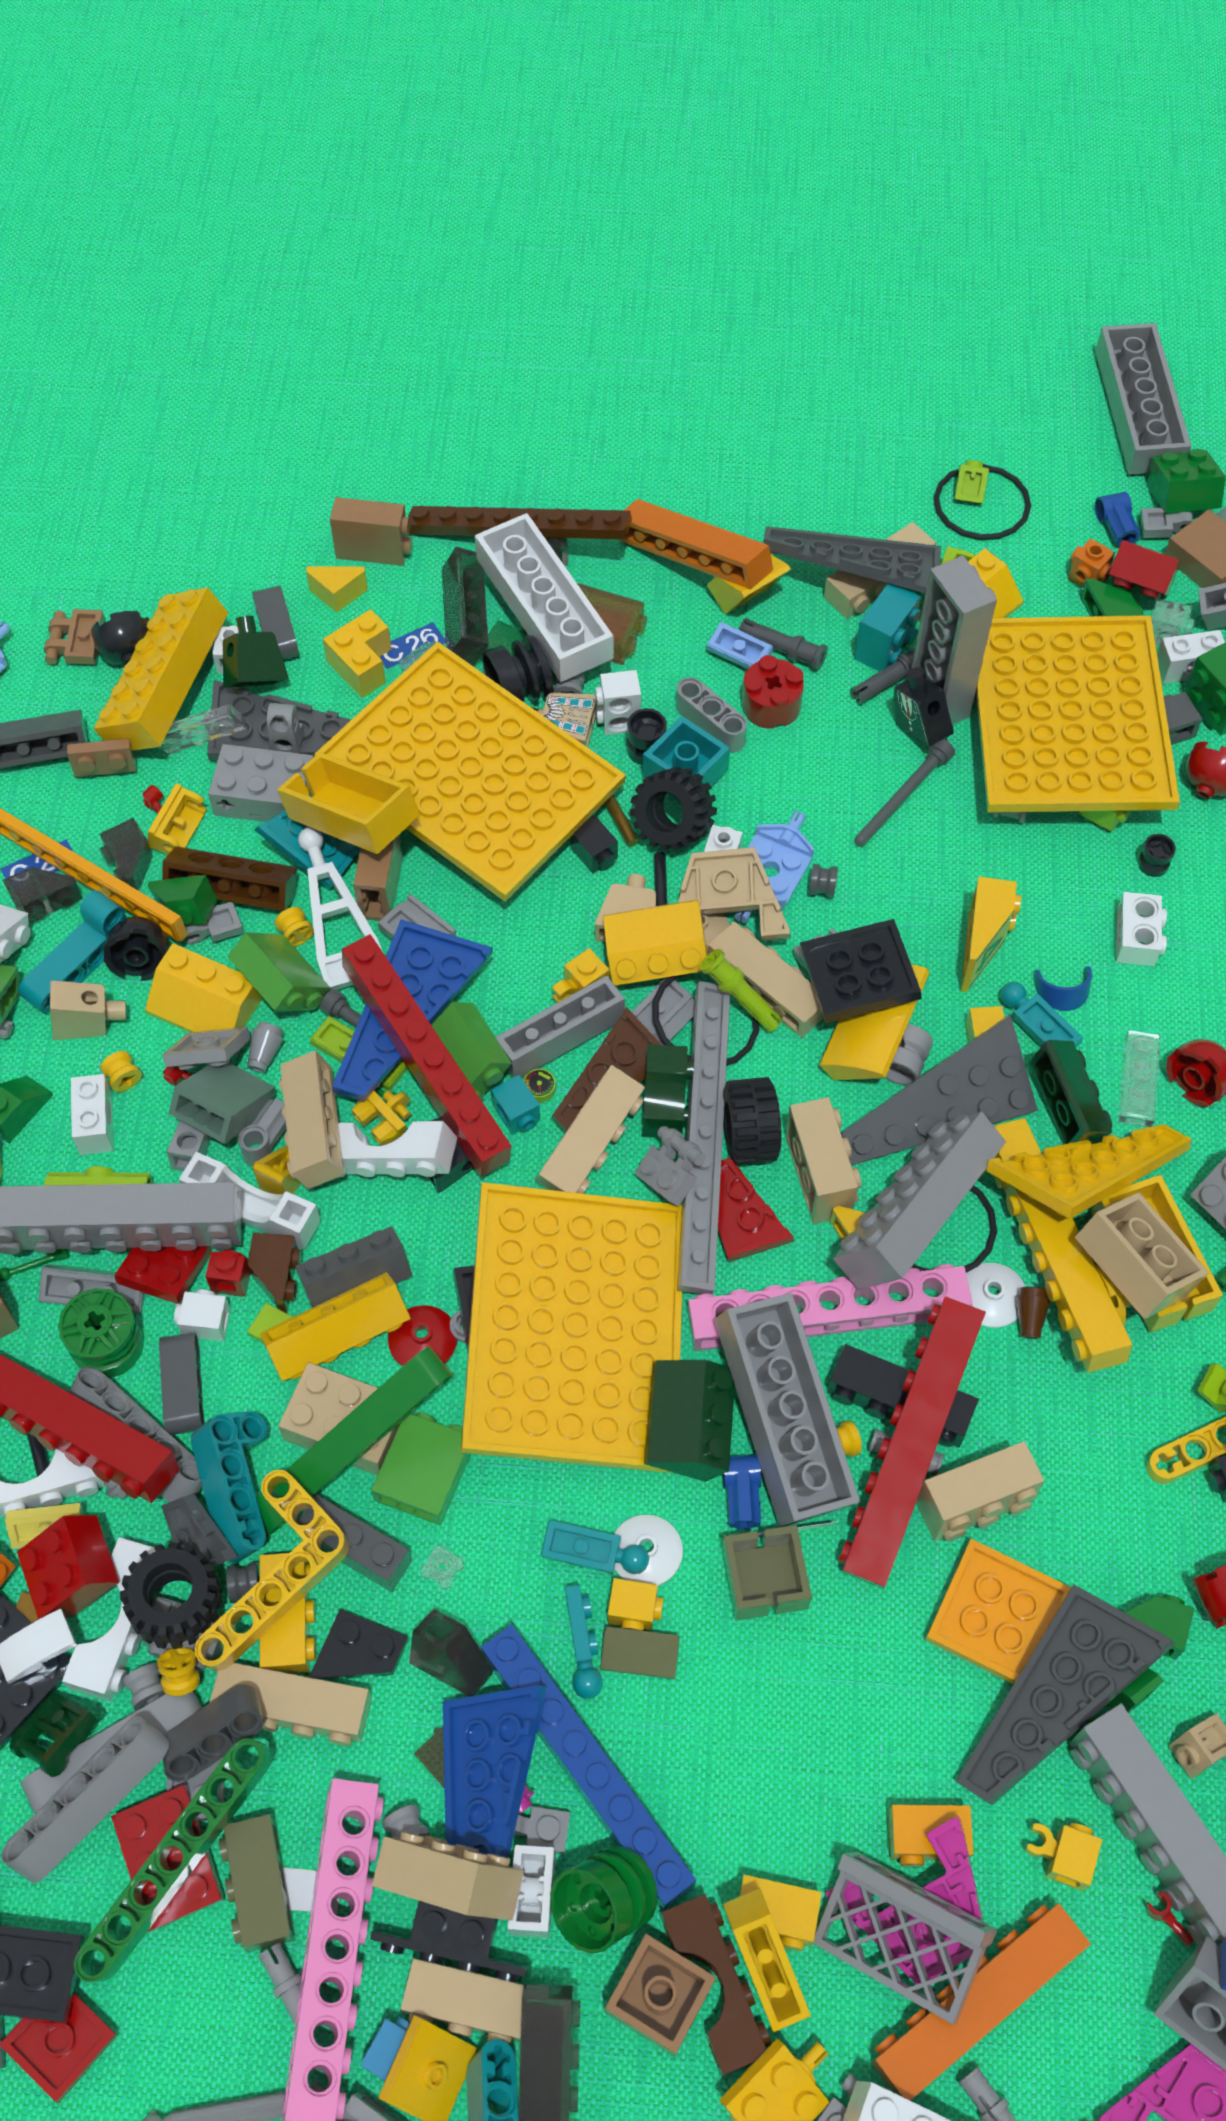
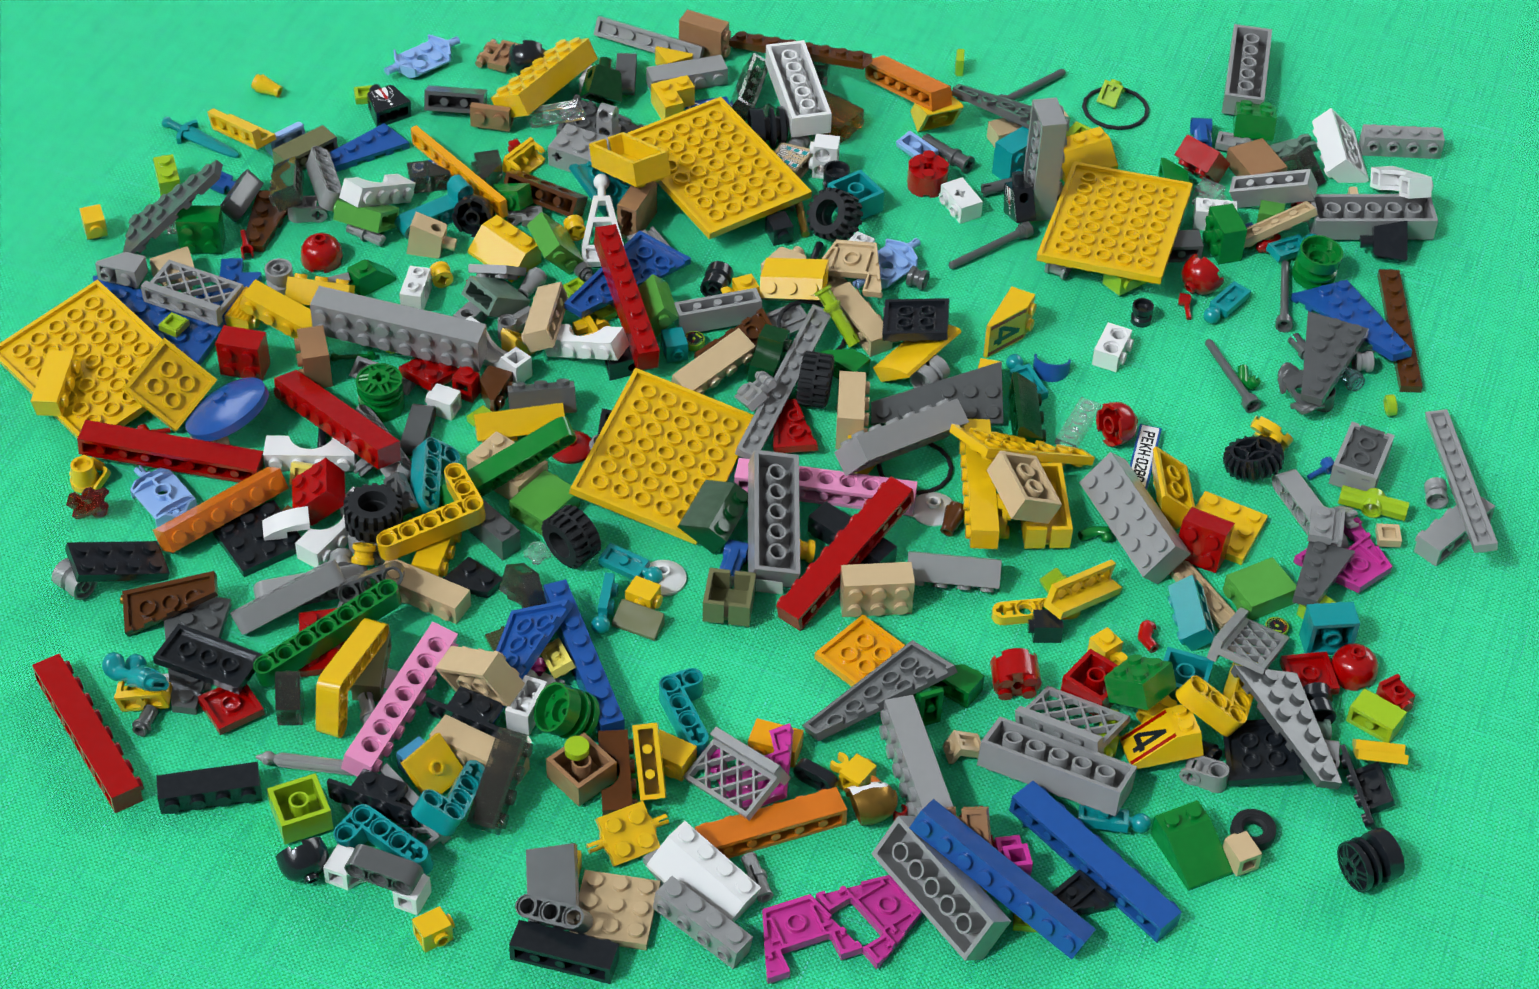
camera: 15 degrees right, 15 degrees down
(59, 1721) = (276, 568): dark green plate -> none
(152, 2007) = (289, 698): none -> clear smoke slope
(225, 1992) = (343, 672): none -> yellow beam
(283, 553) = (642, 38): none -> light grey plate
(383, 592) = (702, 72): none -> light grey brick
(492, 1536) = (571, 536): none -> black tyre
(538, 968) = (716, 277): none -> black wheel
(550, 1781) = (557, 658): none -> light yellow plate
(648, 1976) = (576, 748): none -> lime tile
(711, 713) = (884, 177): light grey beam -> none
(744, 481) = (959, 64): none -> lime tile
(782, 1821) = (675, 696): none -> teal beam
(784, 1065) = (849, 360): none -> green slope
(834, 724) = (961, 200): none -> white brick
(861, 492) = (1035, 85): none -> dark grey piece
(1012, 1878) = (814, 775): none -> black beam
(1074, 1413) = (956, 570): none -> light grey brick
(1089, 562) = (1166, 149): orange brick -> none
(1121, 1910) = (872, 802): none -> pearl gold piece
(1205, 814) = (1184, 300): none -> red hand

